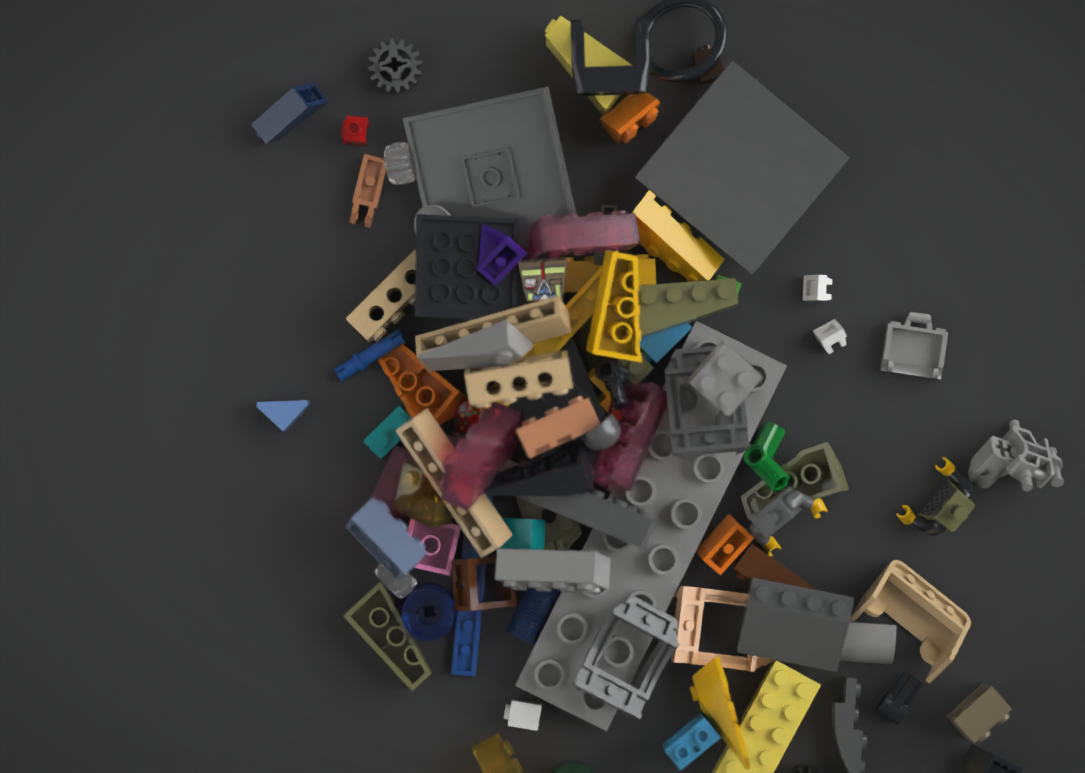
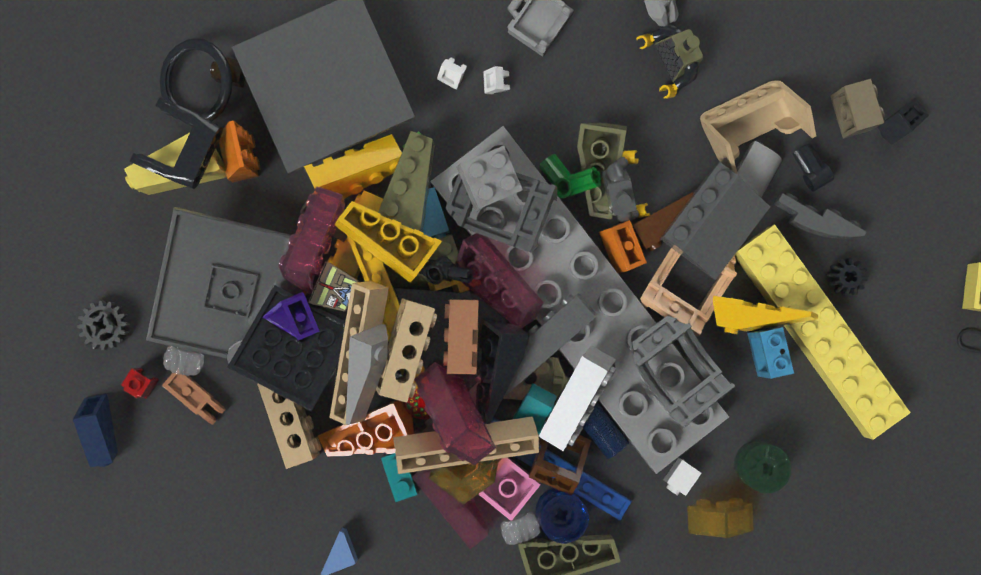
camera: 65 degrees left, 0 degrees up
(361, 360) = (328, 460): blue pin -> none
(386, 538) = (485, 524): sand blue brick -> none
(603, 435) = (487, 301): dark grey hair -> none

